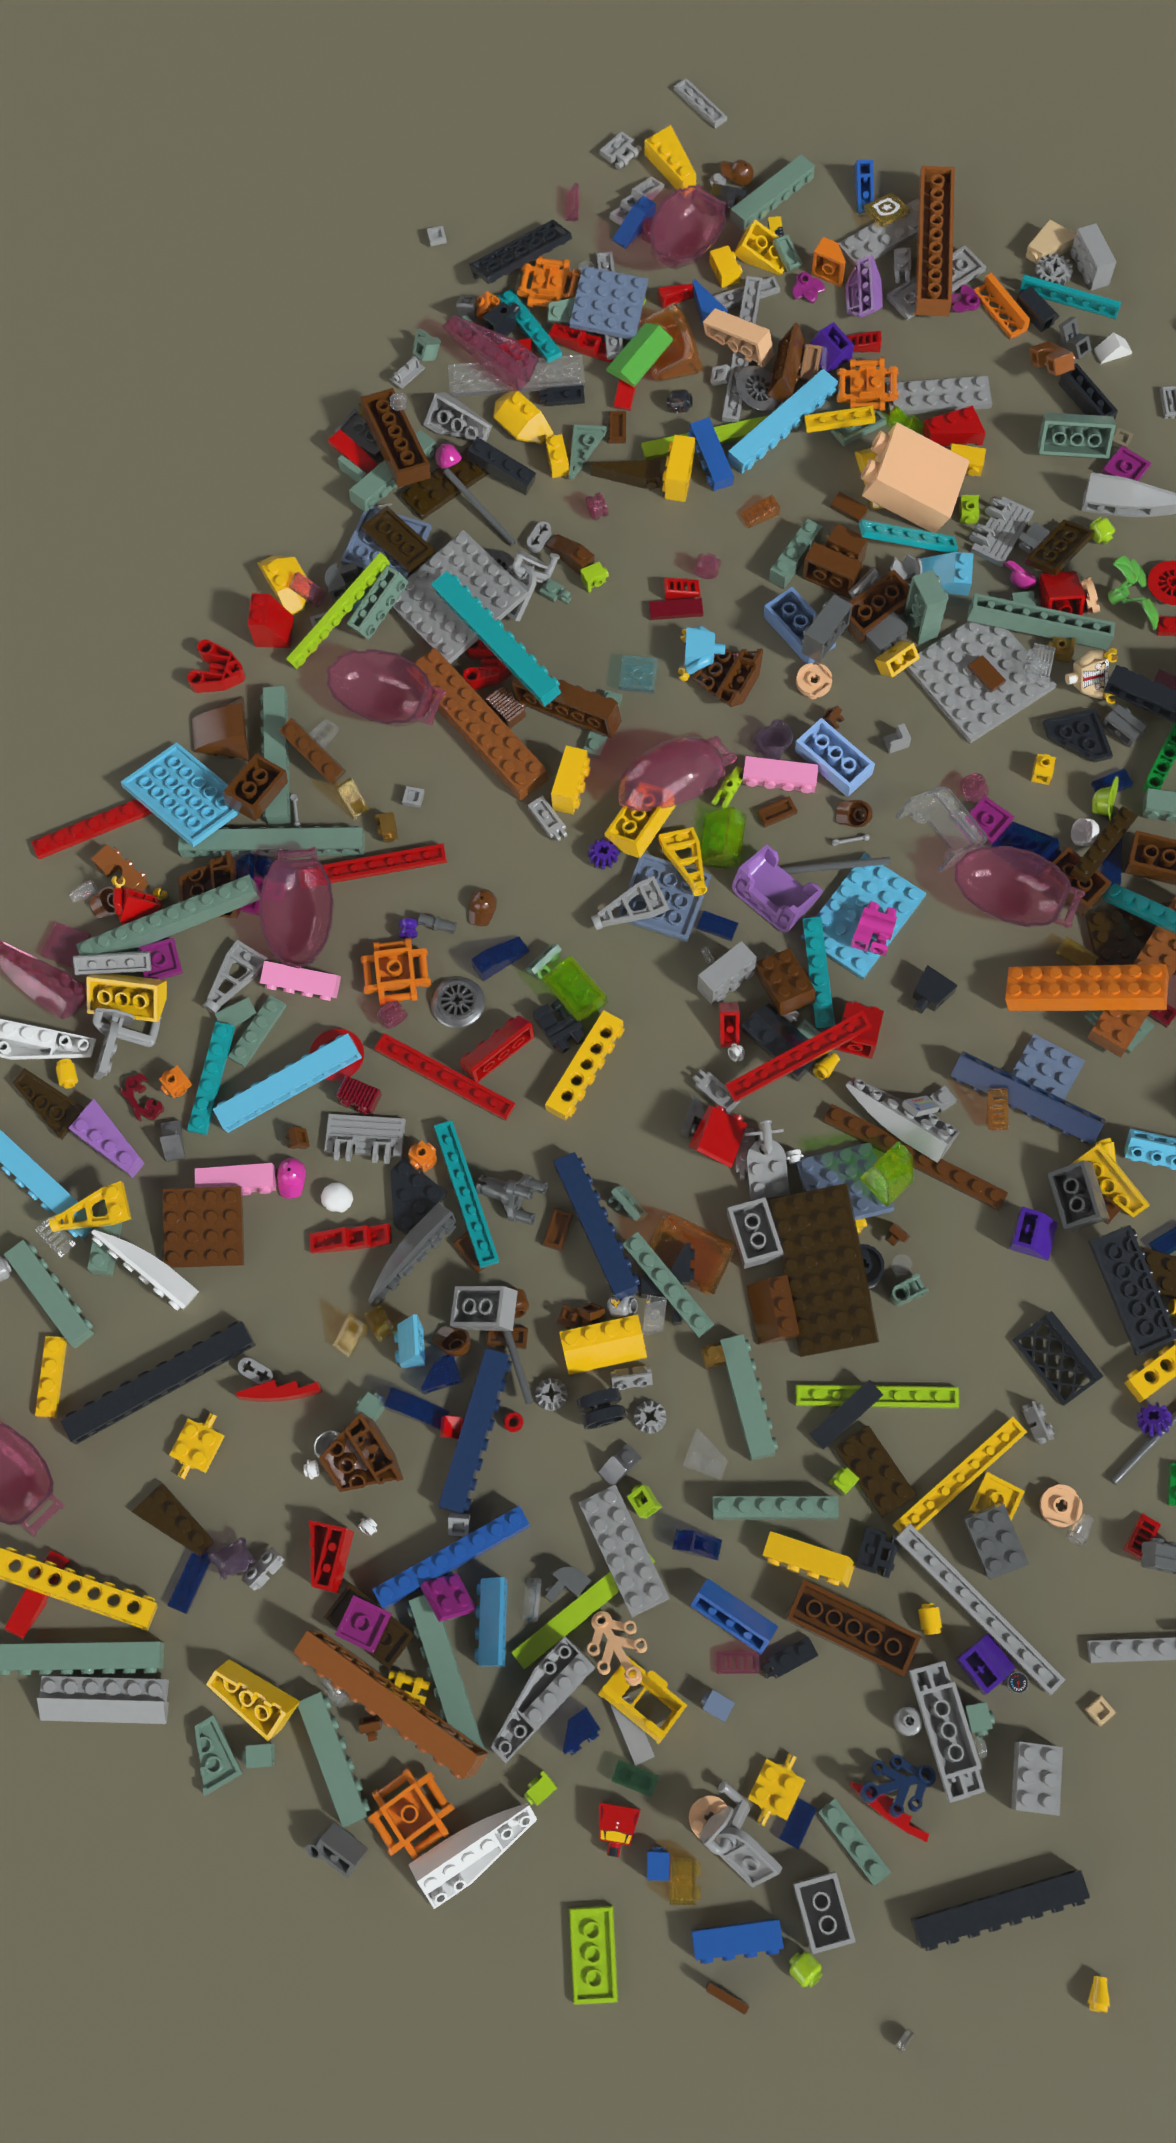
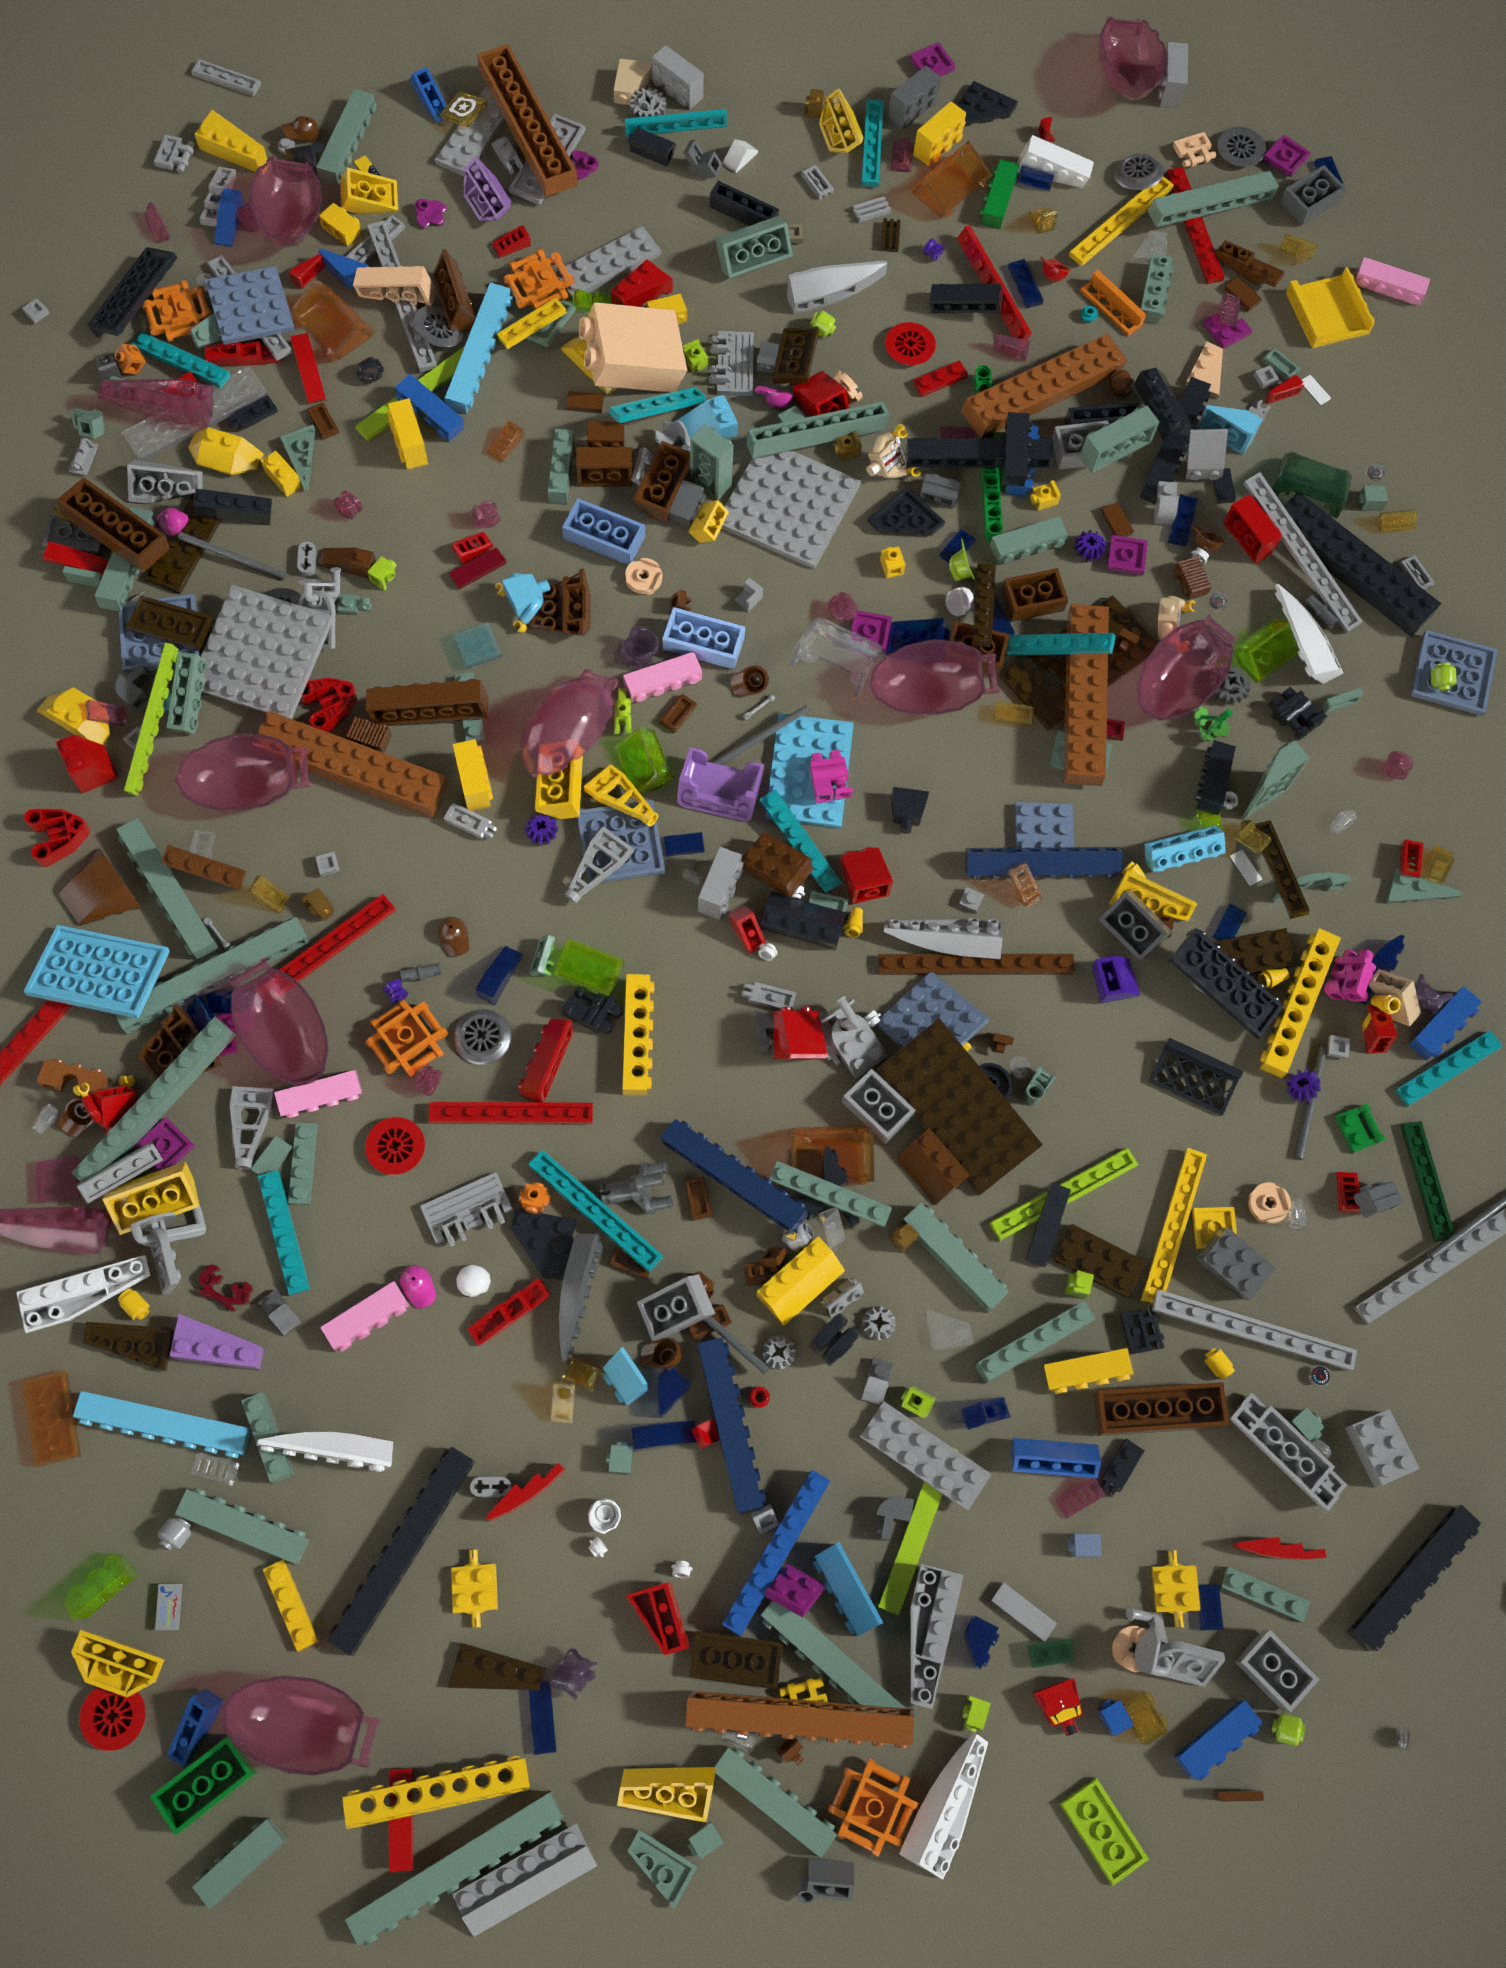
camera: 40 degrees left, 0 degrees up
(116, 1205) = (263, 1402): yellow plate -> none
(174, 1082) = (250, 1255): orange brick -> none
(203, 1227) = (360, 1378): reddish brown plate -> none
(255, 787) = (169, 929): reddish brown brick -> none
(256, 1576) = (608, 1657): light grey hinge -> none
(287, 1082) = (363, 1197): medium azure brick -> none
(298, 1138) = (404, 1244): reddish brown tile -> none
(358, 1095) = (438, 1173): dark red brick -> none
(360, 1456) = (639, 1509): reddish brown wedge -> none
(363, 1624) = (732, 1661): magenta plate -> none
(398, 401) = (98, 487): clear tile -> none
(498, 640) = (327, 673): teal brick -> none
(502, 318) = (151, 363): black torso -> none
(532, 1600) = (869, 1548): clear slope -> none
(615, 1644) = (967, 1544): light nougat plant -> none
(627, 1201) = (758, 1143): sand green plate -> none
(634, 473) = (363, 458): dark brown slope -> none
(640, 354) = (307, 341): bright green slope -> none
(656, 1685) = (989, 1577): yellow piece -> none
(720, 375) = (394, 329): light grey plate -> none
(787, 253) = (393, 187): sand green tile -> none
(799, 1056) = (830, 926): red plate -> none
(810, 362) = (473, 281): medium nougat tile -> none
(826, 628) = (633, 522): dark grey brick -> none
(829, 262) = (439, 180): orange slope -> none
(835, 347) = (484, 260): dark purple slope -> none
(890, 1174) = (967, 989): clear neon green slope -> none
(900, 1721) = (1253, 1468): light grey head -> none
(900, 1783) = (1276, 1519): dark blue plant -> none
(920, 1106) = (958, 916): light grey tile -> none
(985, 1664) = (1286, 1376): dark purple slope -> none
(986, 673) = (796, 498): reddish brown tile -> none
(1008, 306) = (622, 154): orange fence -> none
(1036, 1414) = (1217, 1145): light grey hinge -> none
(1040, 664) = (838, 469): clear brick -> none
(1053, 356) = (701, 184): dark orange arch -> none
(1087, 988) = (1043, 738): orange brick -> none
(1100, 1711) = (1398, 1360): tan tile -> none
(1127, 465) = (811, 255): magenta plate -> none
(1133, 573) = (872, 372): bright green plant -> none

